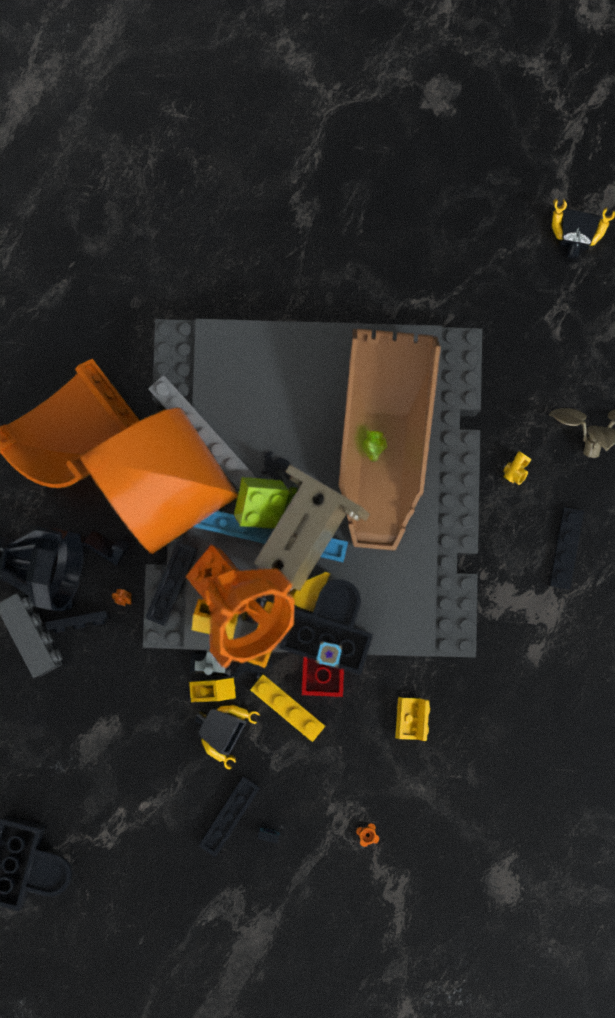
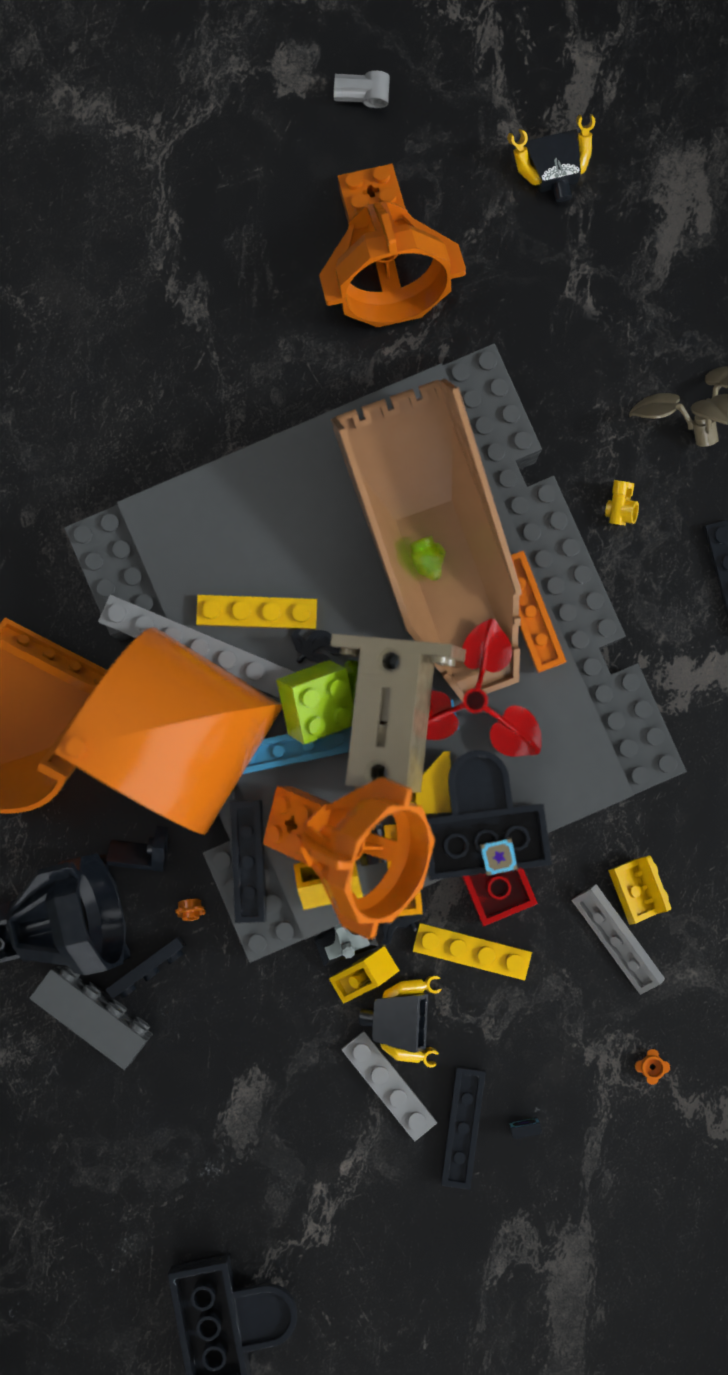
camera: 25 degrees left, 0 degrees up
(195, 767) = (389, 1085): none -> light grey plate
(250, 429) = (256, 612): none -> yellow plate
(378, 580) = (517, 730): none -> red plant
(383, 744) = (618, 939): none -> light grey plate
(424, 515) = (535, 621): none -> orange plate
(444, 225) = (377, 234): none -> orange plate
(480, 129) = (368, 88): none -> light grey piece

